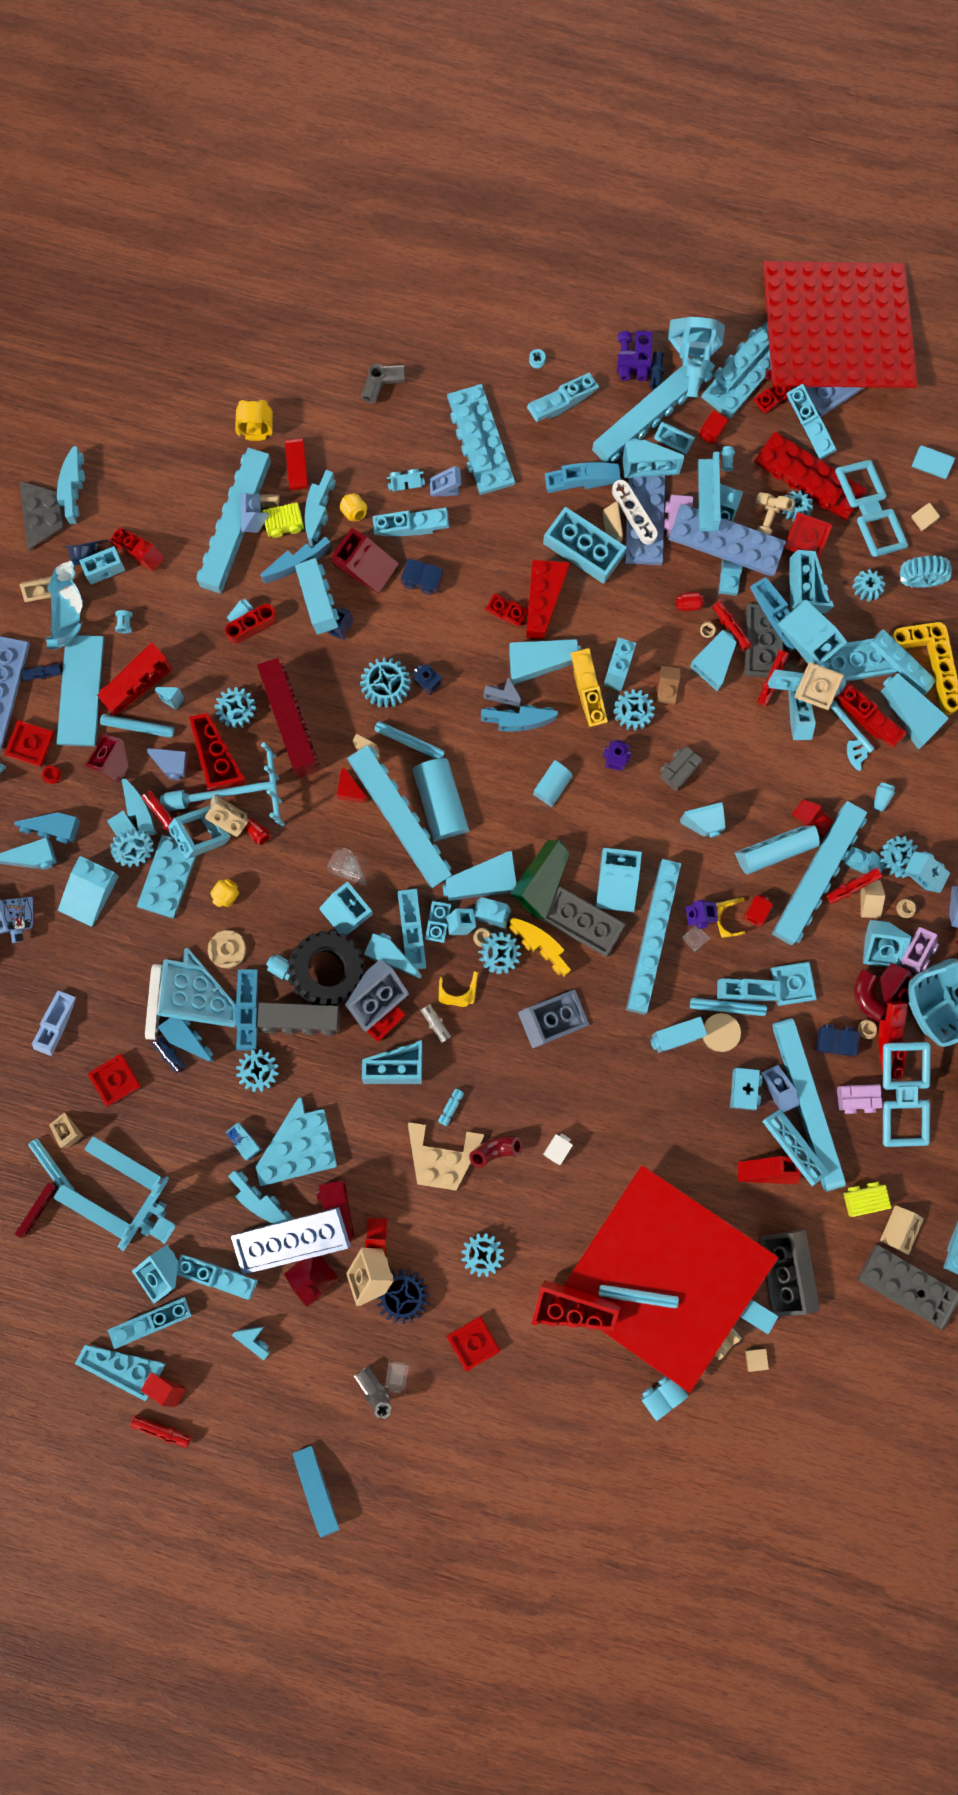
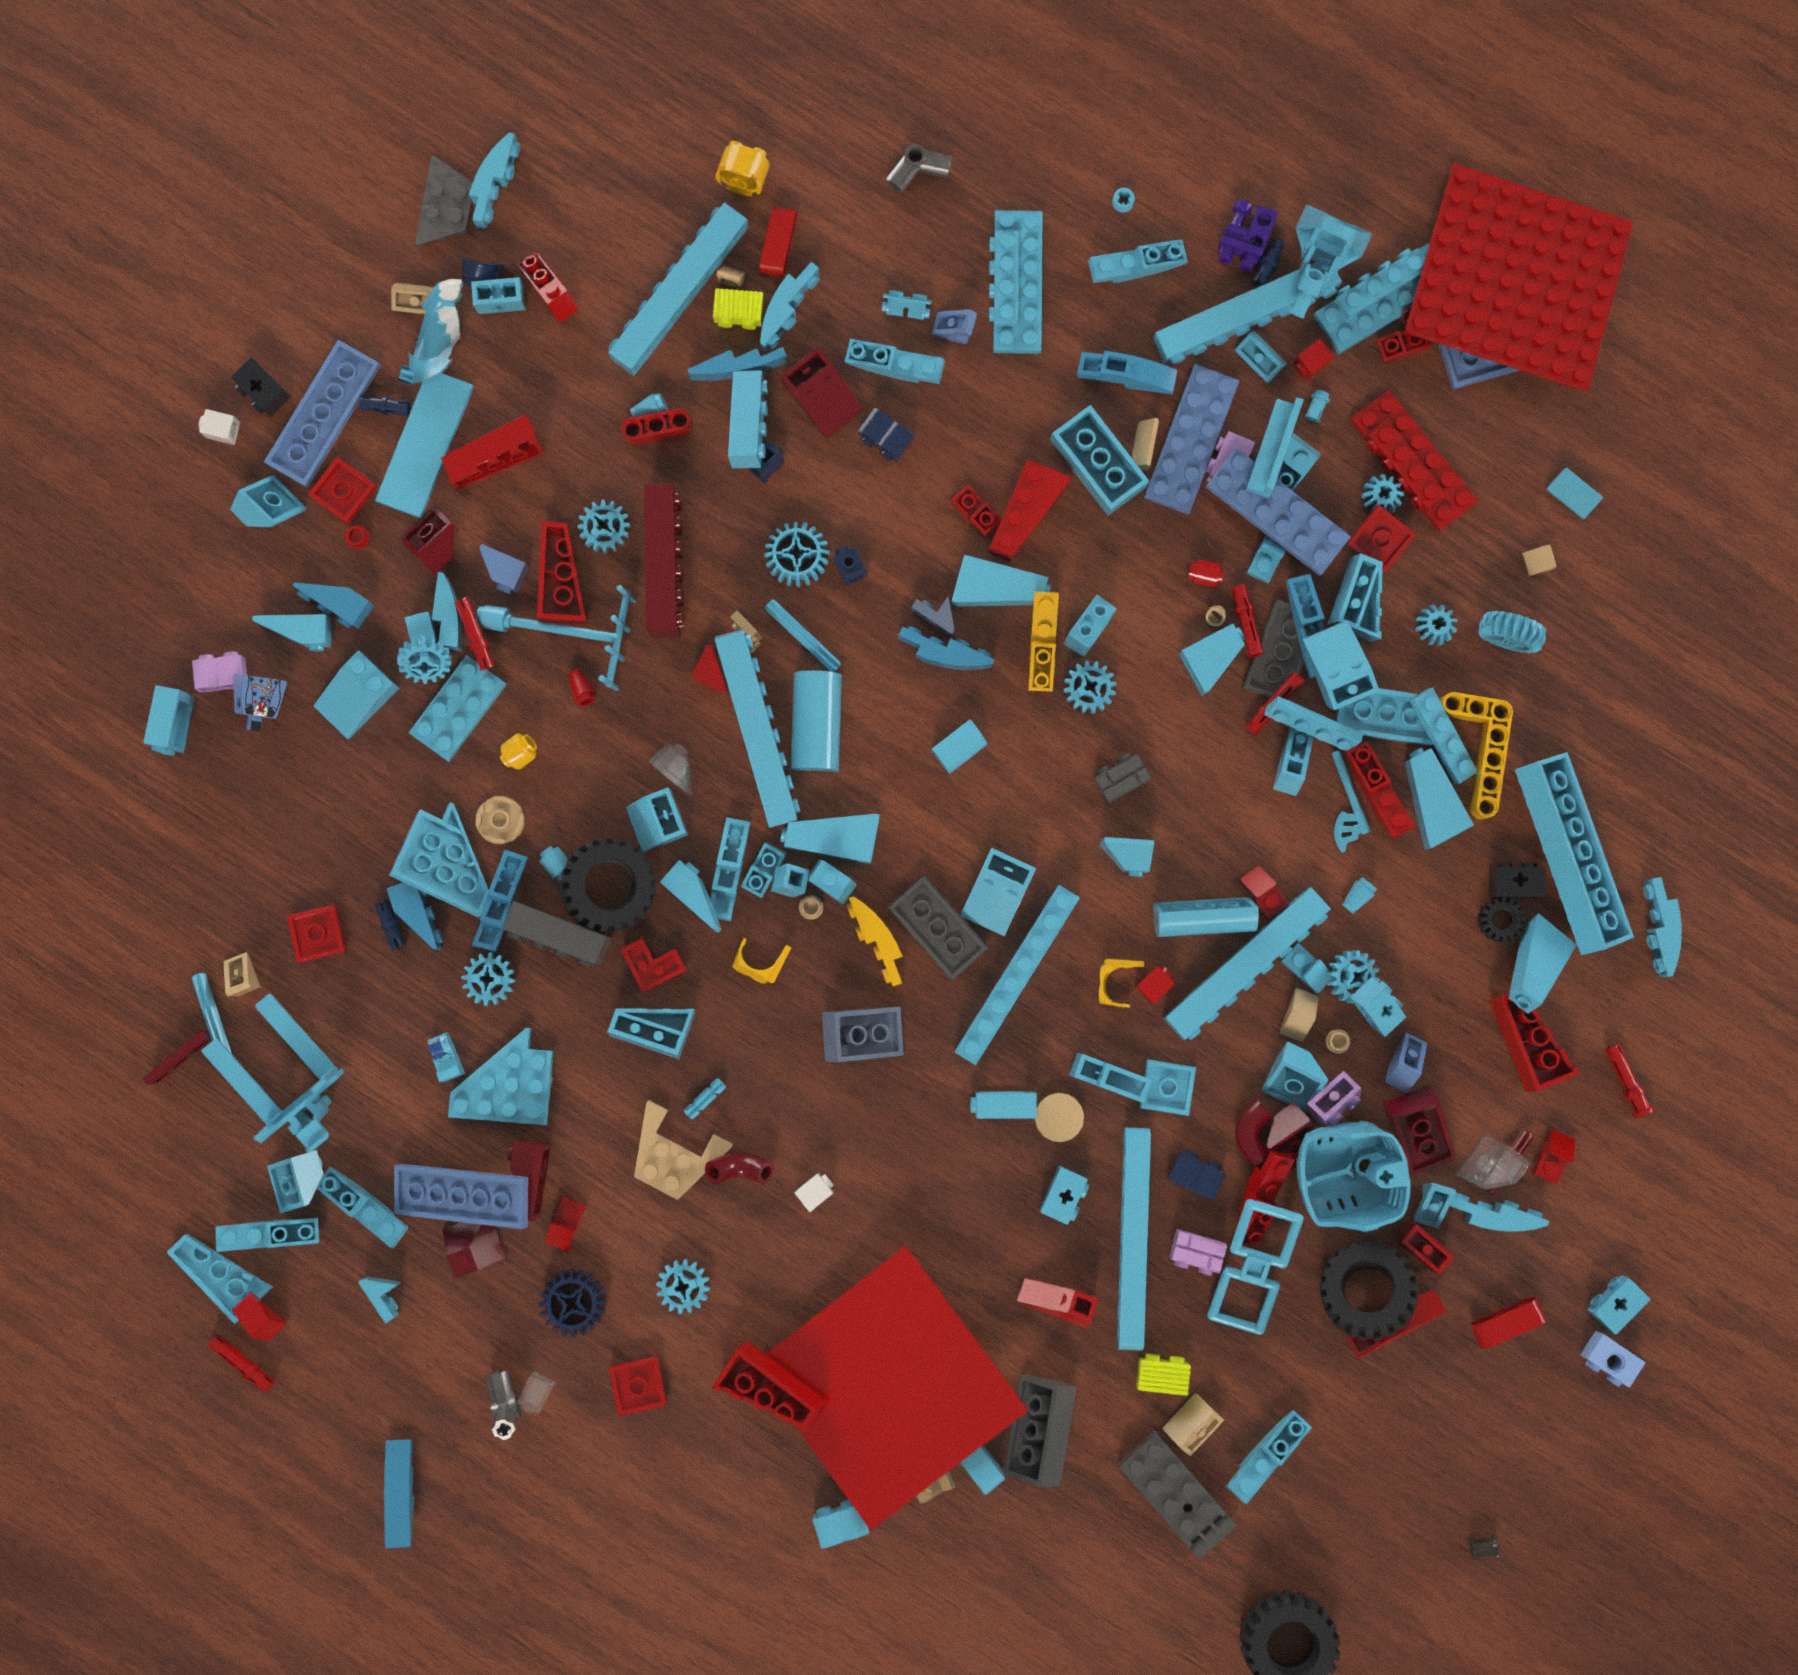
camera: 20 degrees right, 5 degrees up
(53, 1023) = (266, 841): light blue slope -> none
(123, 615) = (508, 367): medium azure bush -> none
(136, 725) = (479, 510): medium azure axle -> none
(152, 1018) = (382, 879): white beam -> none
(171, 696) = (530, 488): medium azure slope -> none
(184, 841) = (531, 662): medium azure window -> none
(226, 816) = (550, 658): tan bracket -> none
(251, 517) = (700, 292): medium blue slope -> none
(266, 1208) = (431, 1126): medium azure slope -> none
(353, 507) = (830, 319): yellow head -> none
(369, 1275) = (541, 1266): tan slope -> none
(376, 995) = (656, 936): sand blue slope -> none
(435, 1023) = (719, 992): light grey pin -> none
(505, 947) = (832, 930): medium azure gear -> none
(541, 879) = (905, 859): dark green slope -> none
(616, 755) = (1045, 745): dark purple brick -> none
(636, 511) = (1175, 438): white beam -> none
(638, 1296) = (849, 1398): medium azure axle -> none
(649, 459) = (1214, 378): medium azure slope -> none
(668, 685) = (1143, 669): medium nougat slope -> none
(695, 938) = (1068, 993): clear slope -> none
(698, 913) = (1084, 967): dark purple brick -> none
(730, 1007) = (1078, 1089): medium azure axle -> none
(756, 1360) = (966, 1517): tan tile -> none
(773, 506) = (1352, 486): tan bar -> none
(780, 1088) = (1106, 1208): medium blue slope -> none
(796, 1147) = (1098, 1284): medium azure fence -> none
(811, 421) = (1439, 393): medium azure slope -> none
(818, 685) = (1326, 733): tan tile -> none
(853, 886) = (1283, 993): red pin -> none
(867, 1029) = (1237, 1172): tan plate -> none
(871, 508) = (1474, 527): medium azure bar -> none

